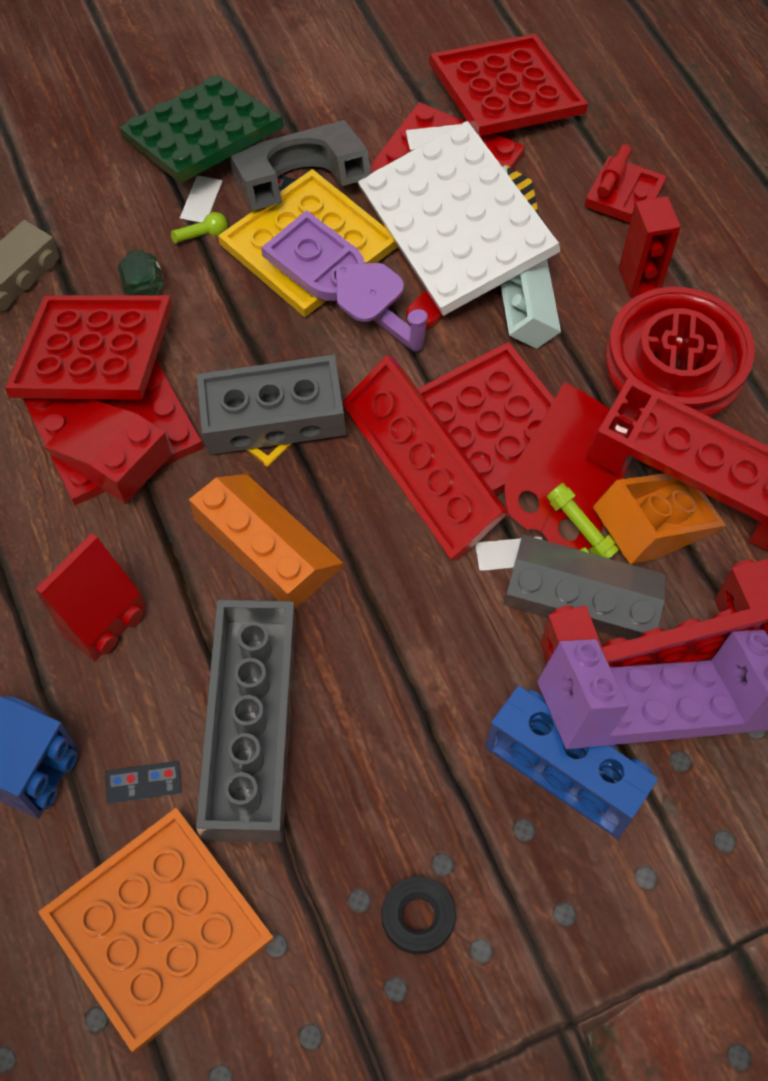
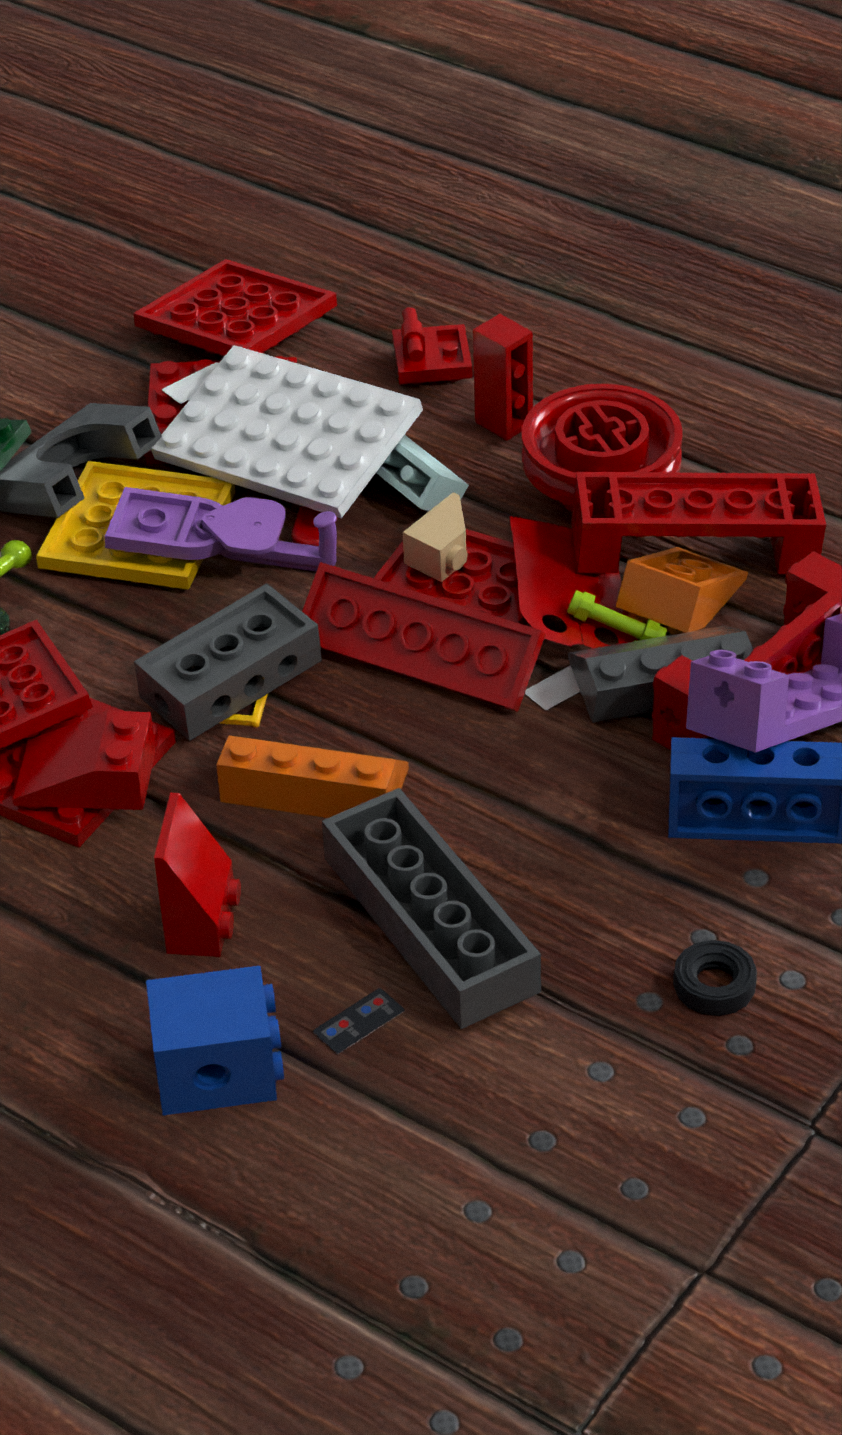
camera: 30 degrees left, 20 degrees down
(155, 929) = (476, 1107): orange plate -> none
(497, 375) = (437, 540): none -> tan slope

